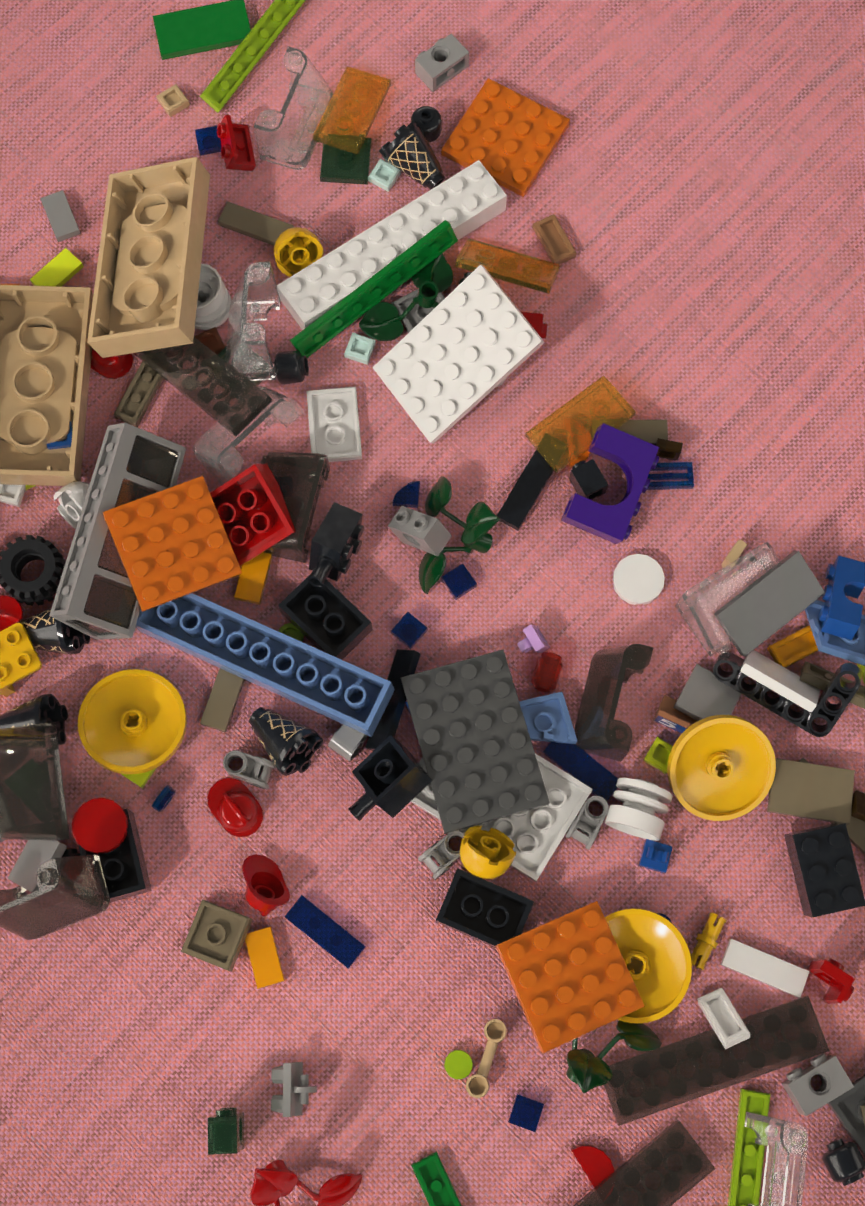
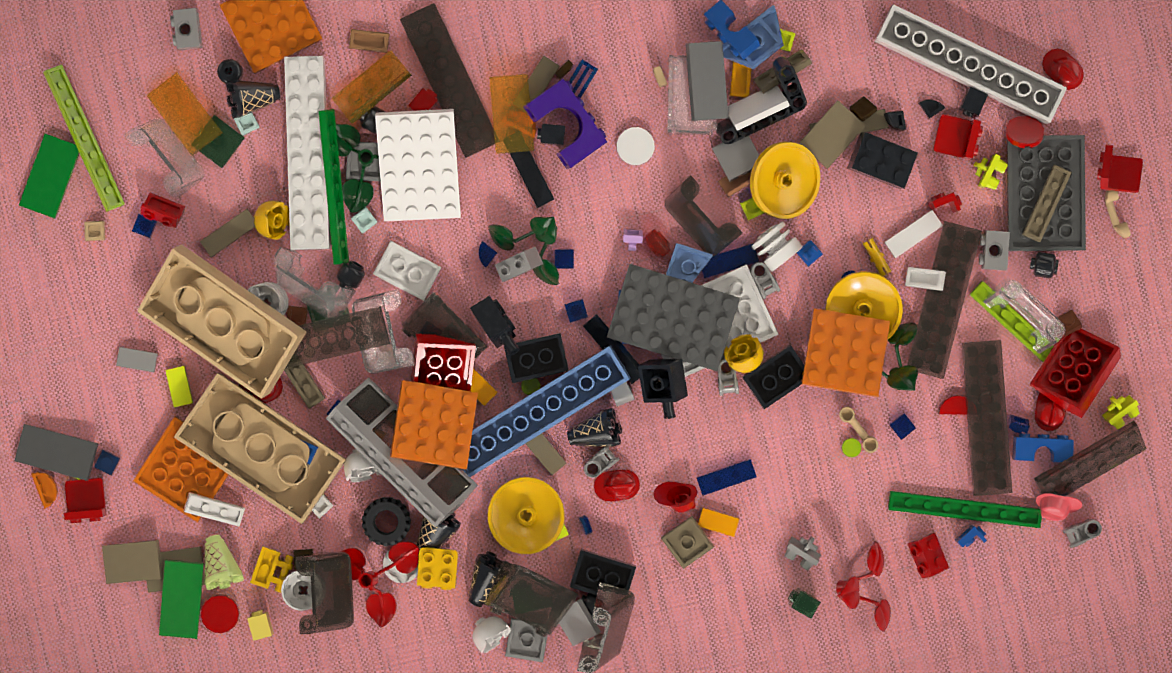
camera: 60 degrees left, 15 degrees up
(100, 825) = (582, 571): red tile -> none
(570, 343) = (449, 79): none -> clear smoke plate

